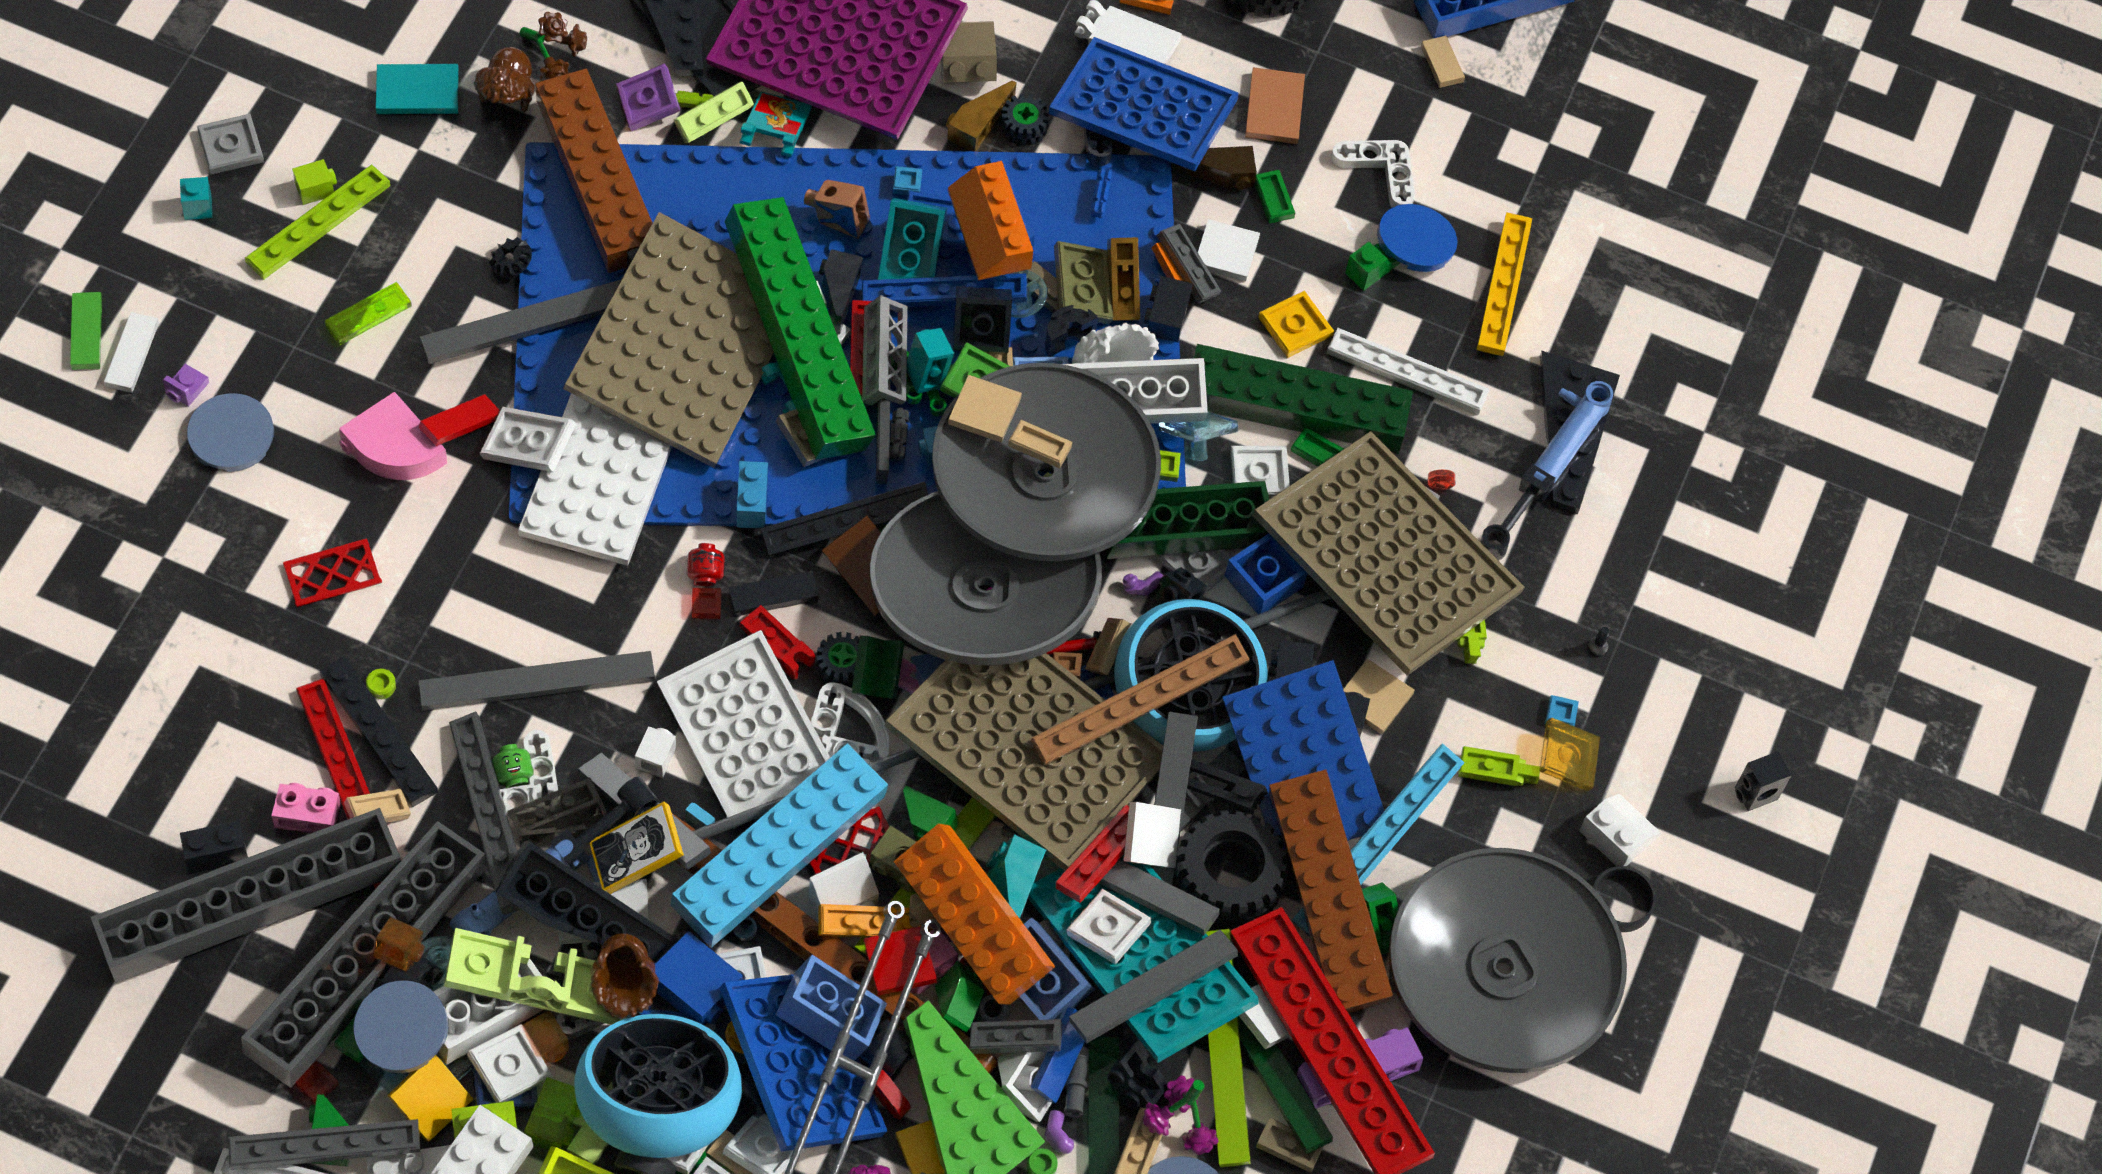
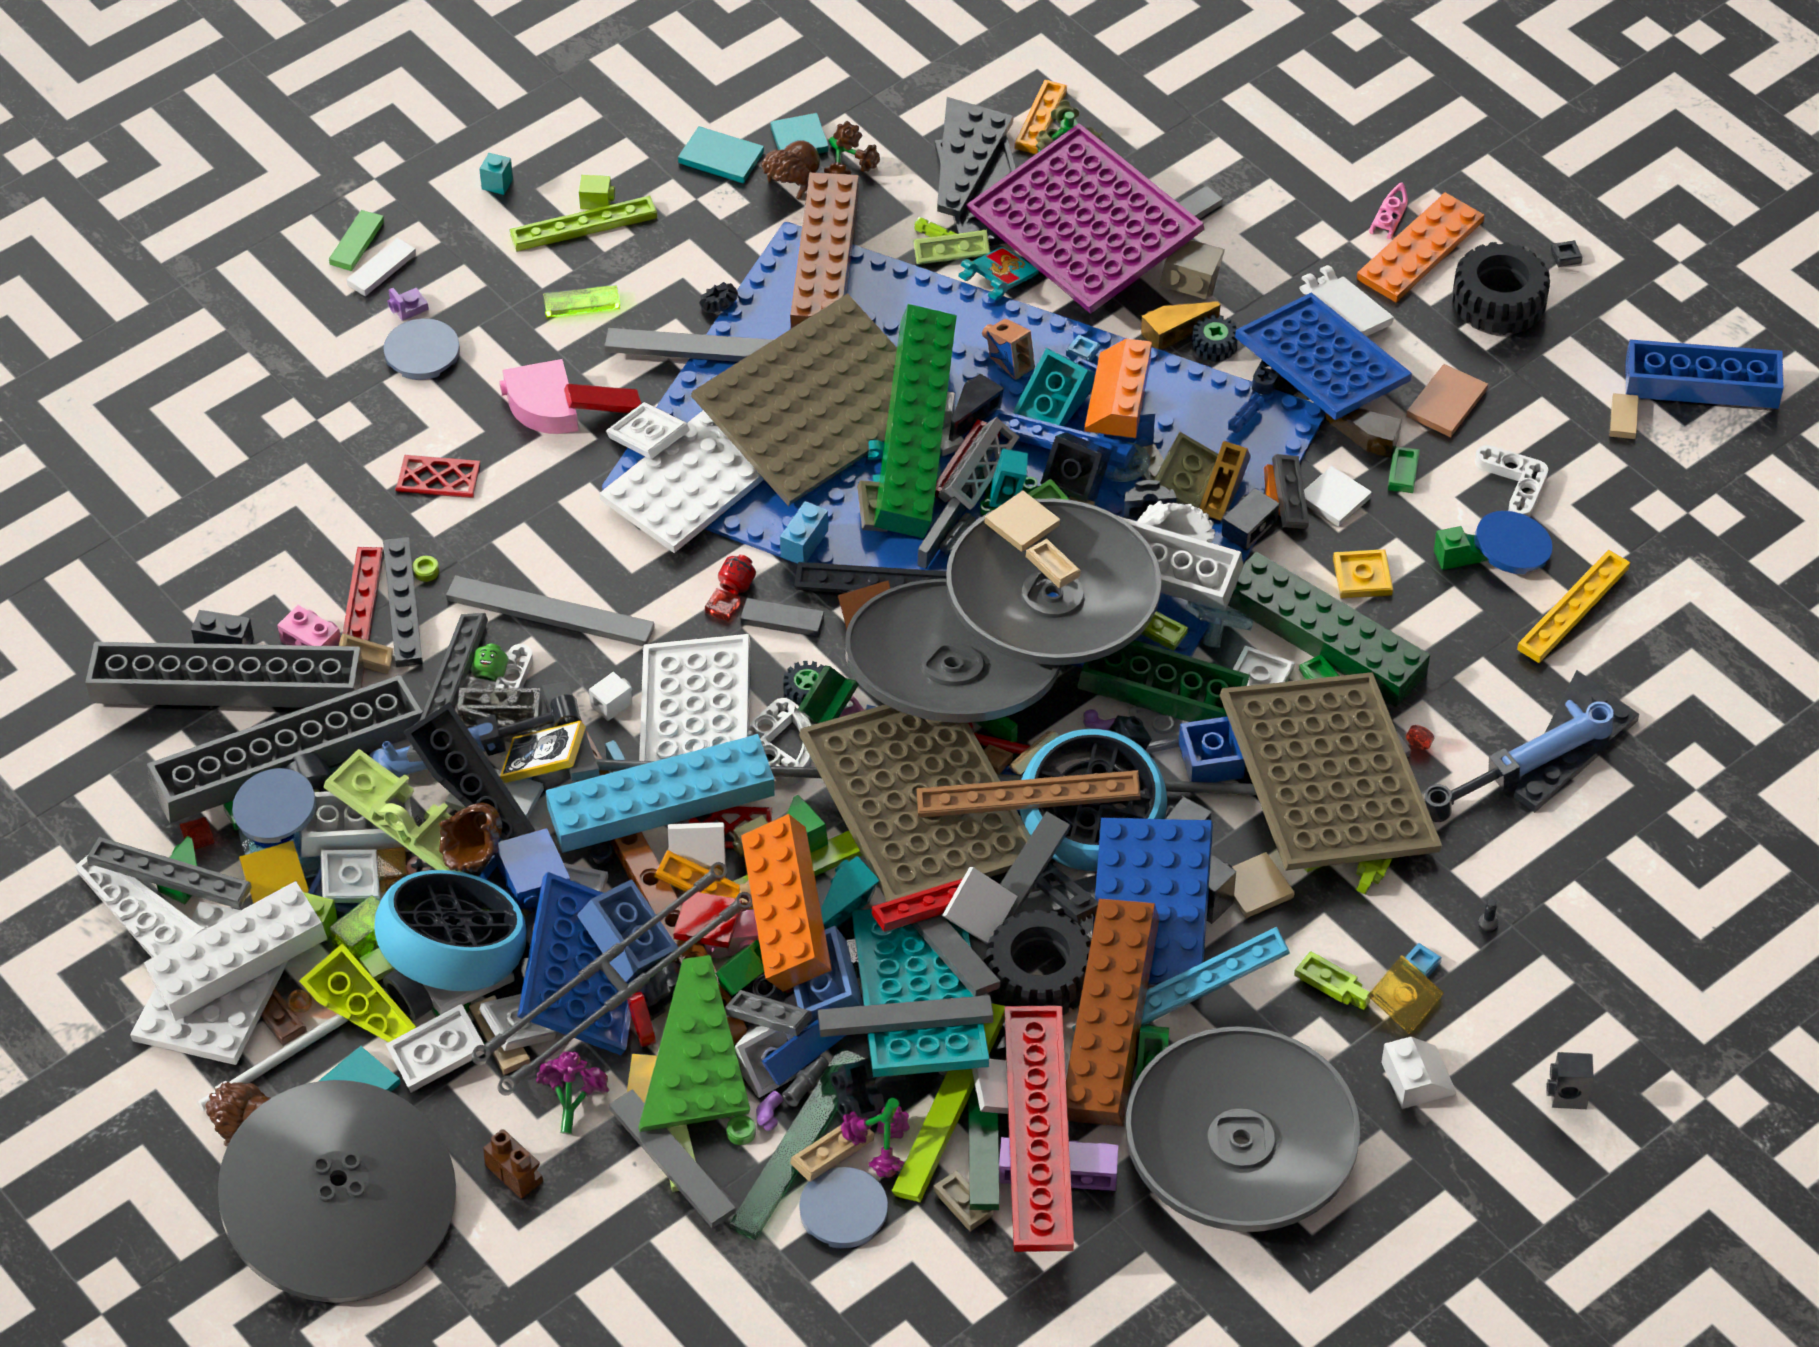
camera: 35 degrees right, 10 degrees down
(230, 144) = (549, 146): light grey tile -> none
(399, 944) = (307, 743): clear orange brick -> none
(484, 36) = (800, 128): none -> tile
(648, 97) = (903, 218): medium lavender tile -> none
(783, 643) = (763, 653): red plate -> none
(1108, 926) = (899, 961): white tile -> none
(1408, 371) = (1443, 645): white tile -> none
(1640, 878) = (1396, 1106): black tyre -> none

